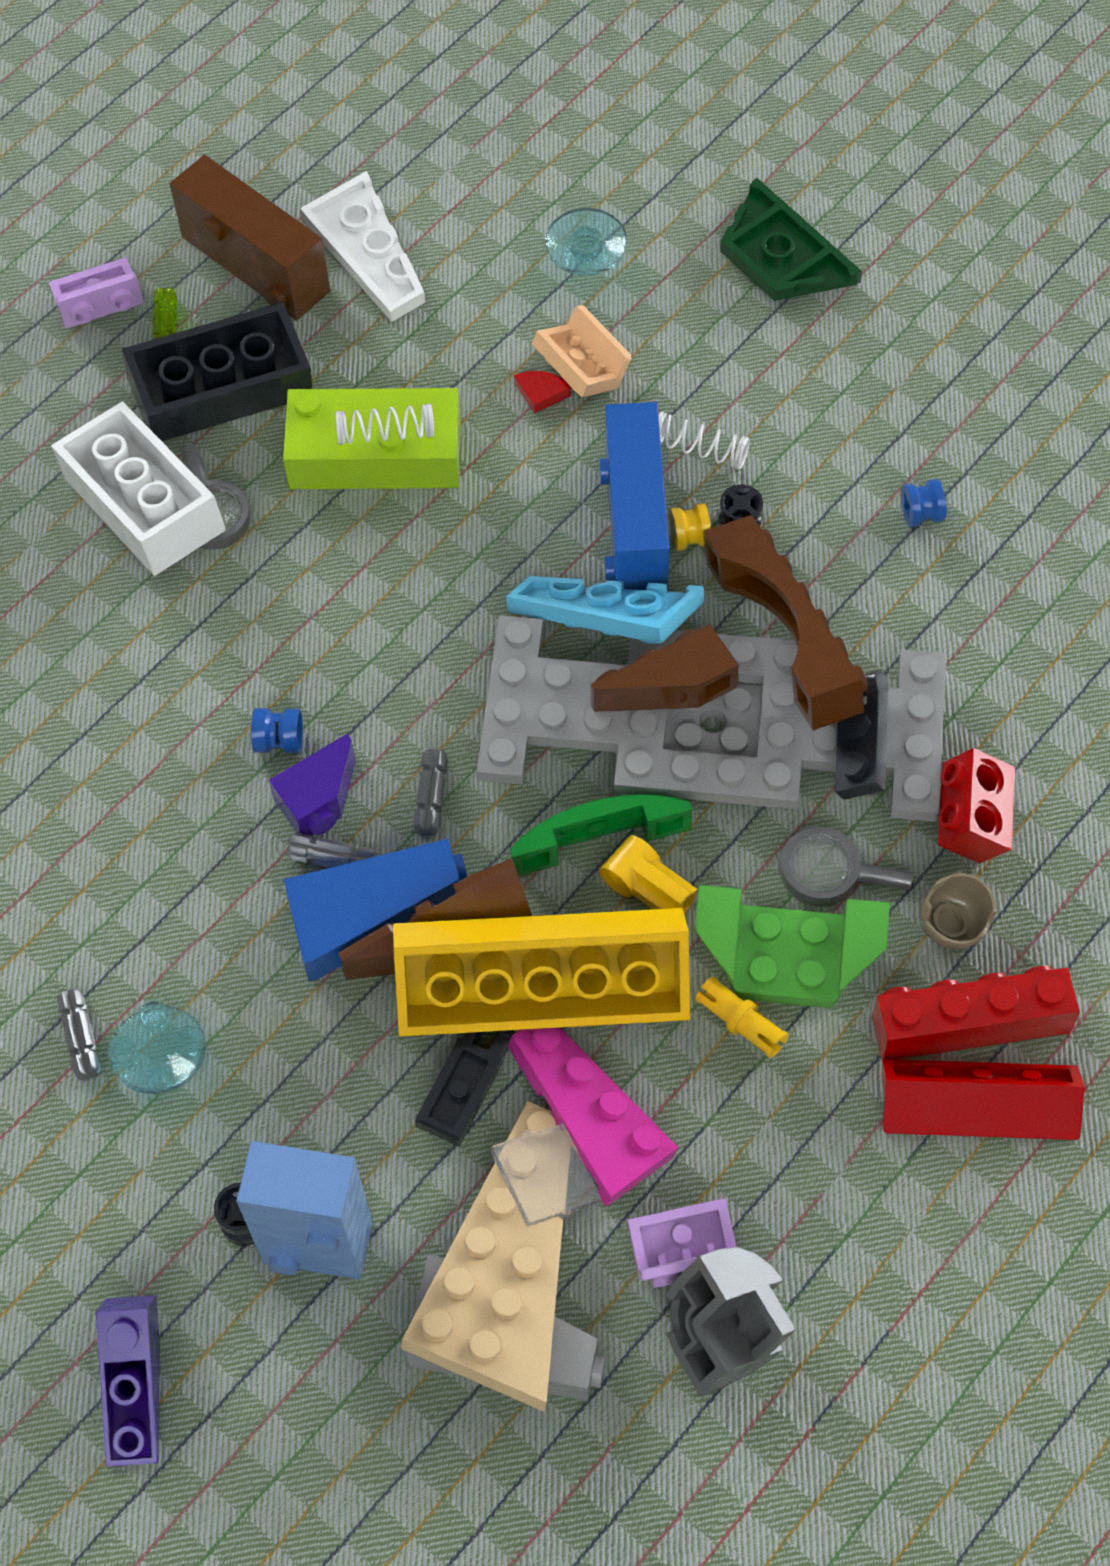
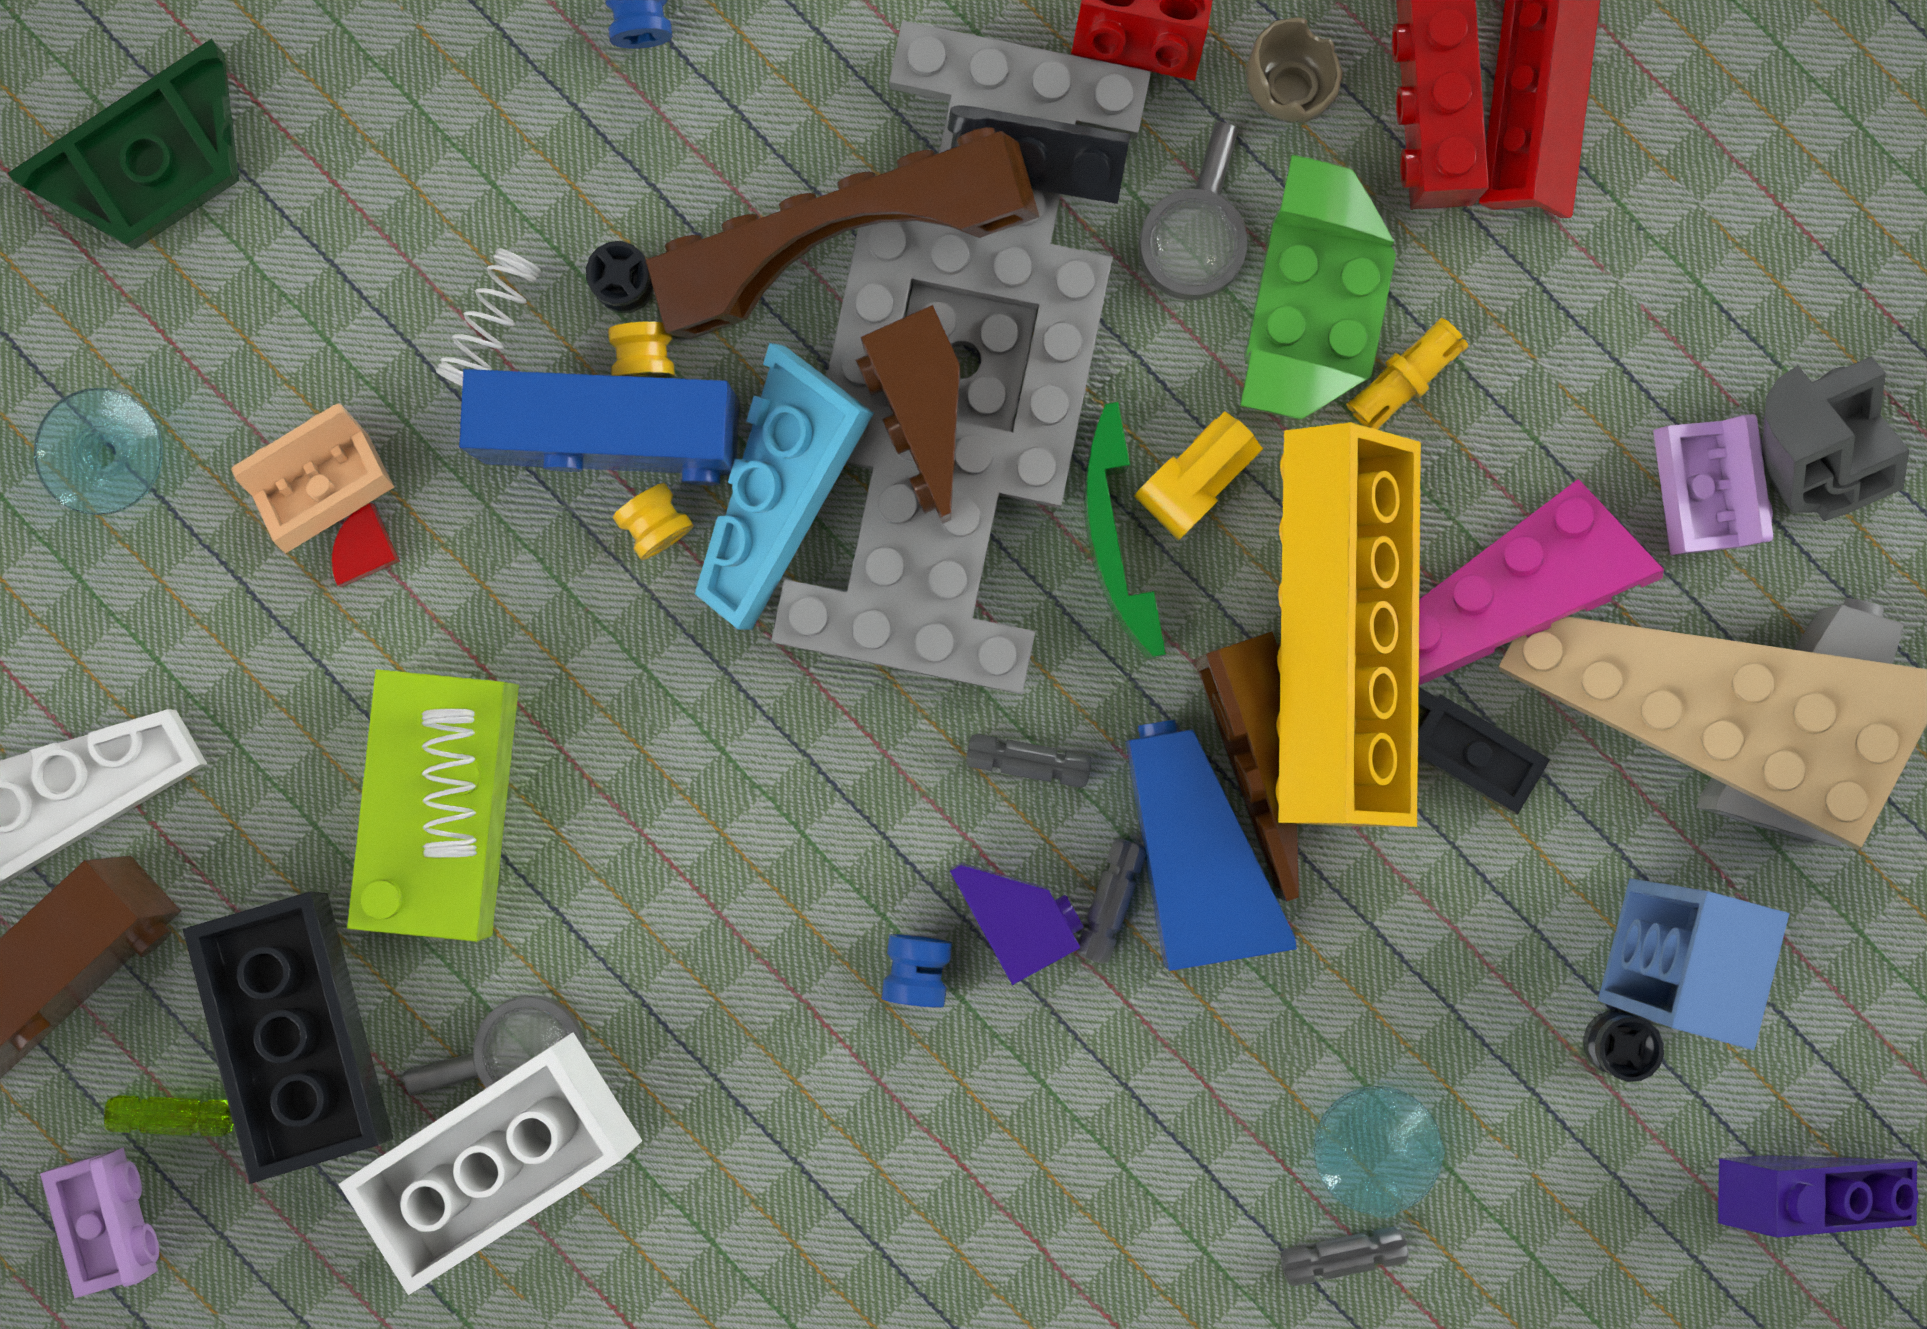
camera: 85 degrees left, 25 degrees up
(545, 1174) = (1624, 650): clear piece -> none
(575, 544) = (653, 521): none -> yellow wheel

